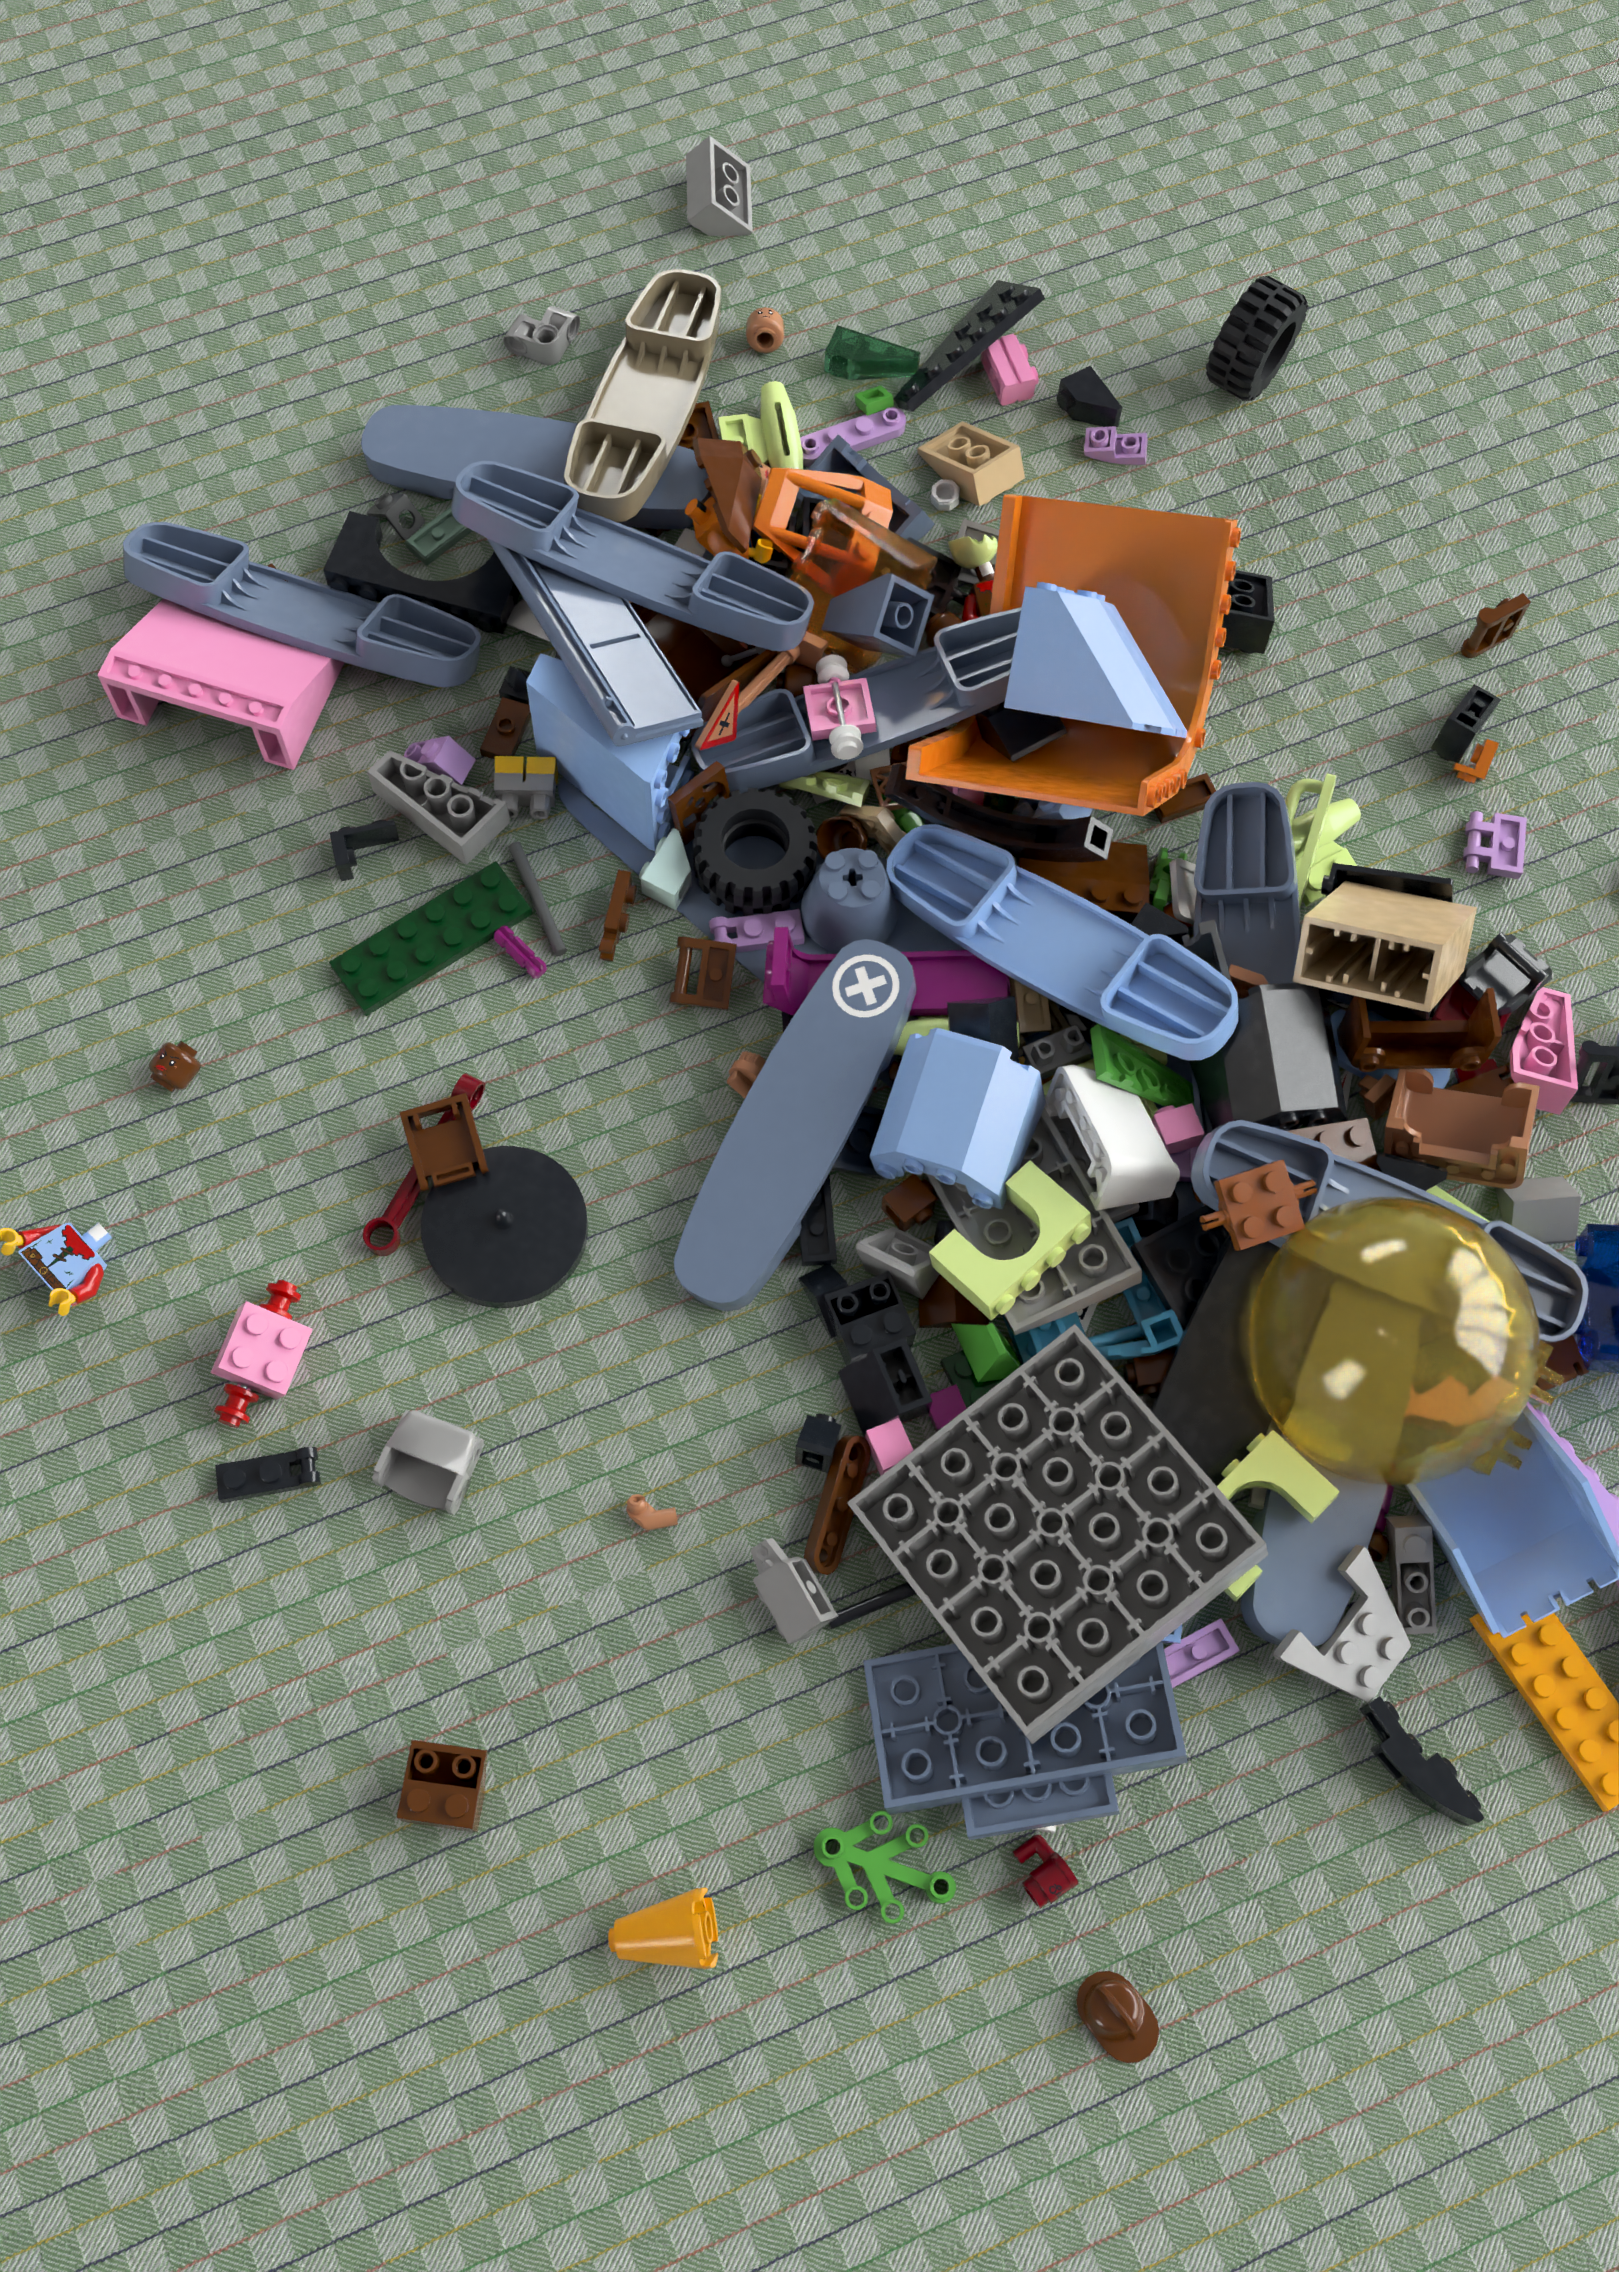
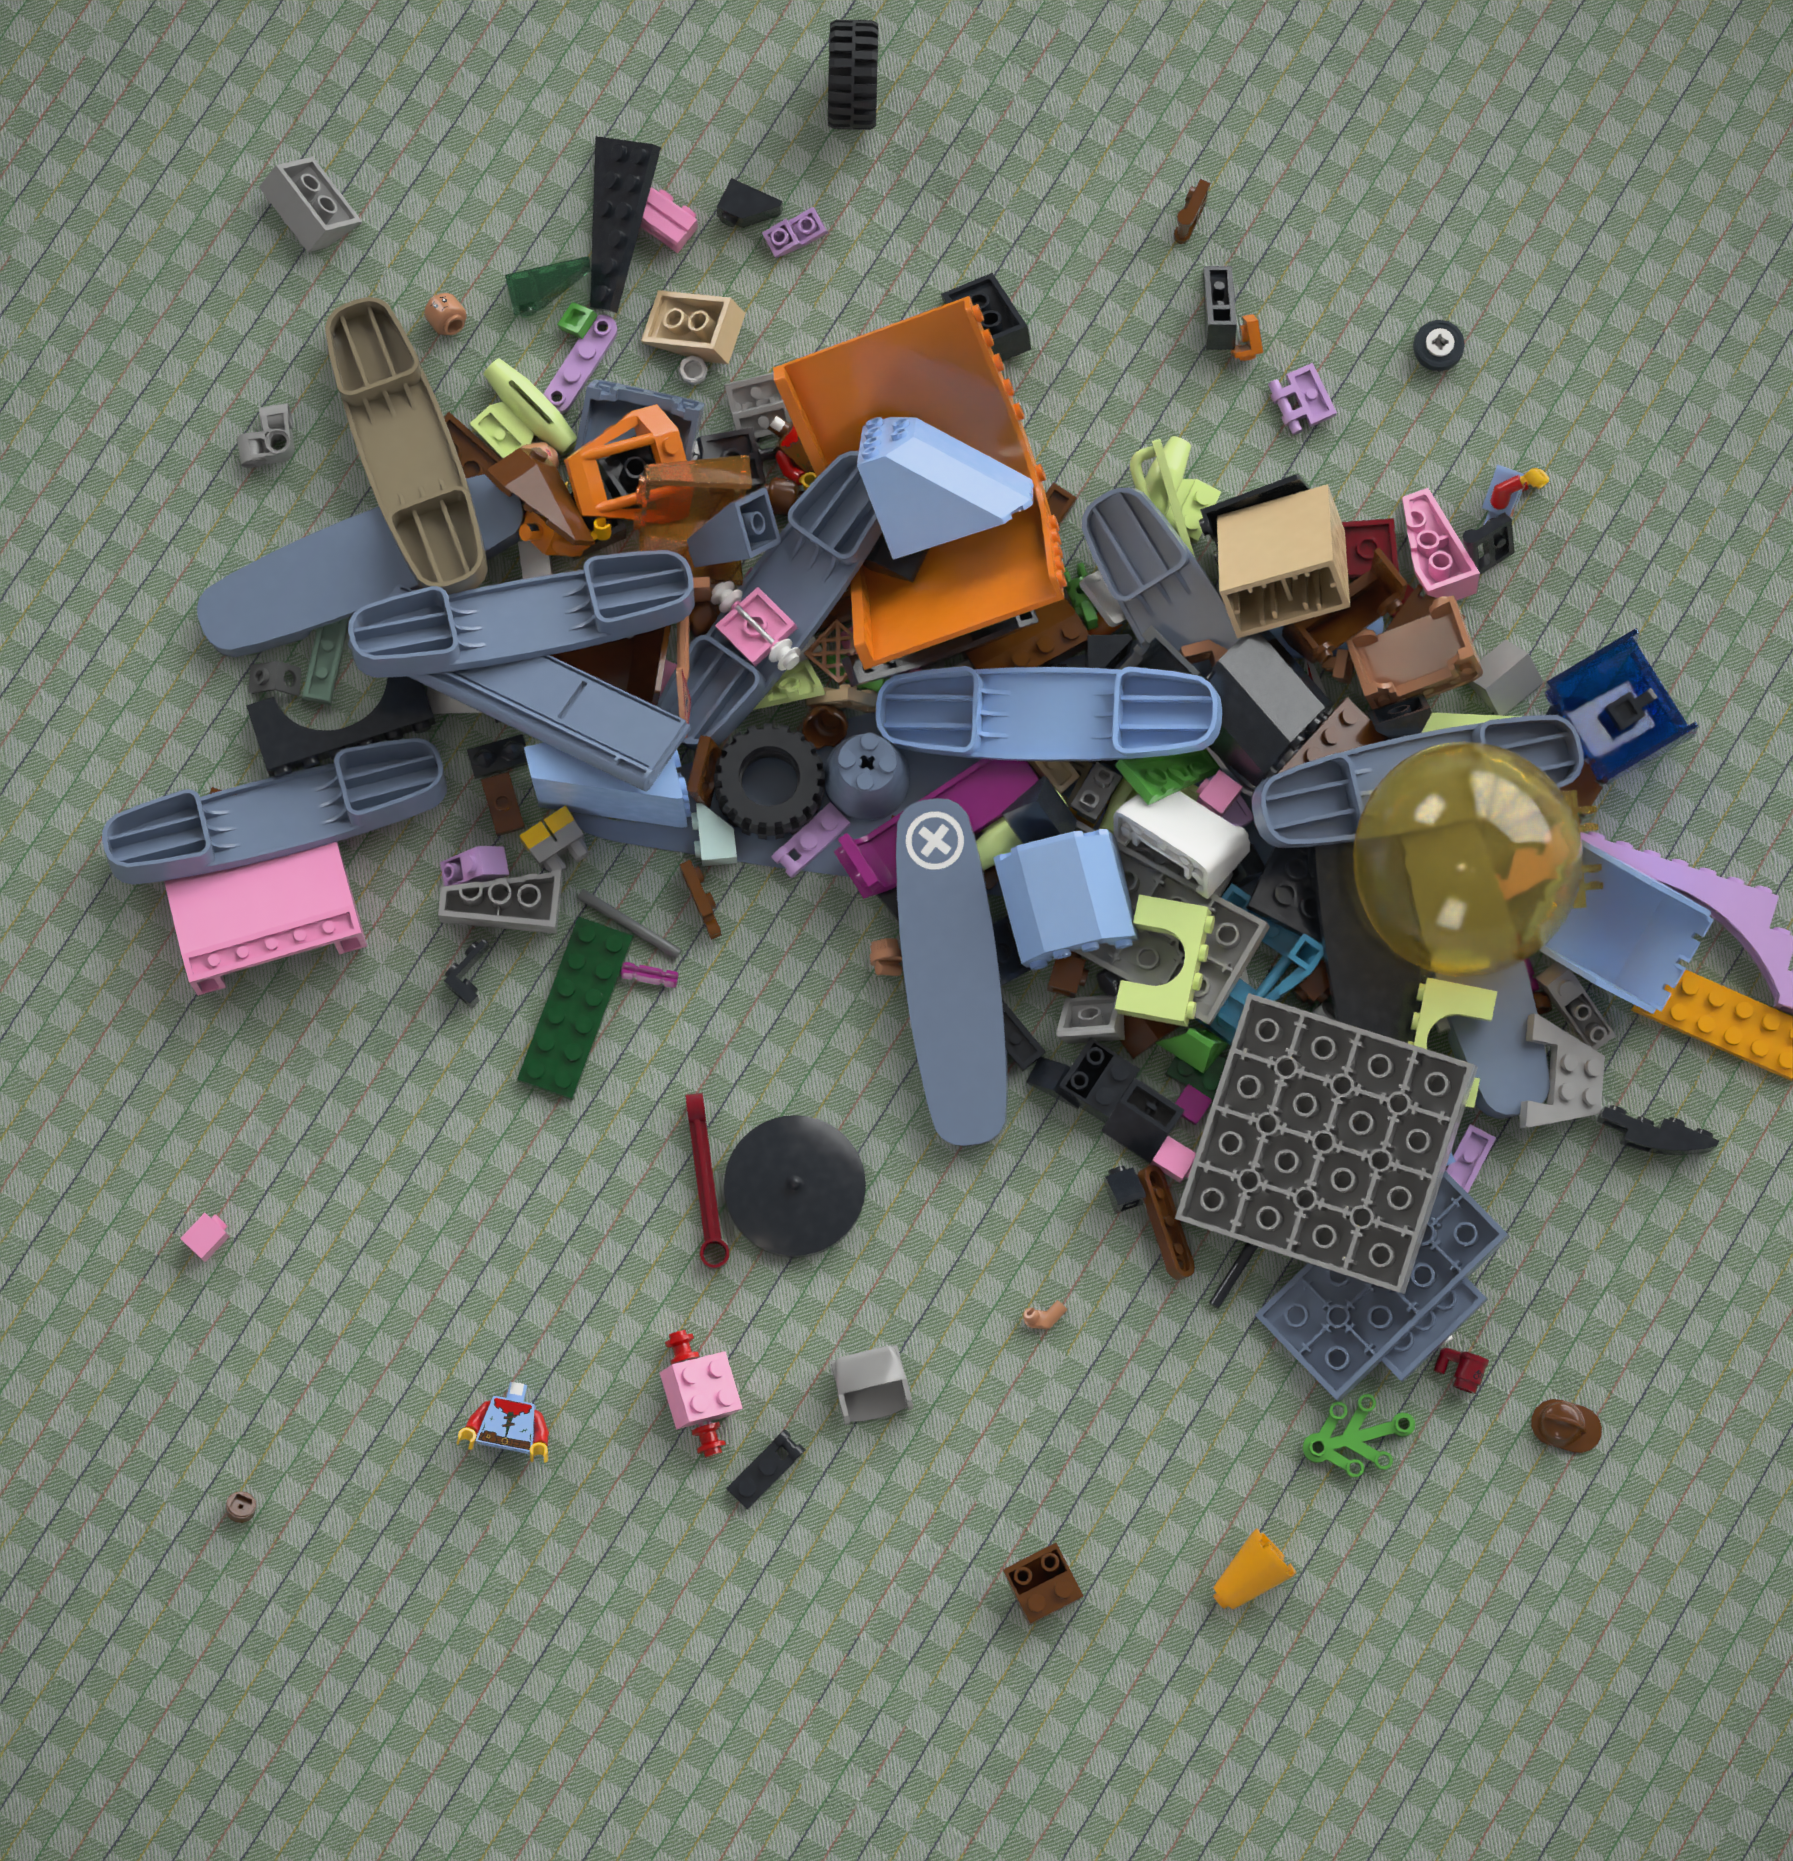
camera: 35 degrees left, 10 degrees up
(174, 1066) = (470, 1233): reddish brown head -> none
(446, 1149) = (716, 1161): reddish brown container -> none
(714, 974) = (807, 897): reddish brown plate -> none
(790, 1592) = (1176, 1303): light grey hinge -> none
(971, 553) = (758, 416): yellowish green hair -> none
(1258, 1205) = (1322, 829): dark orange plate -> none
(1507, 969) = (1374, 508): black shield -> none

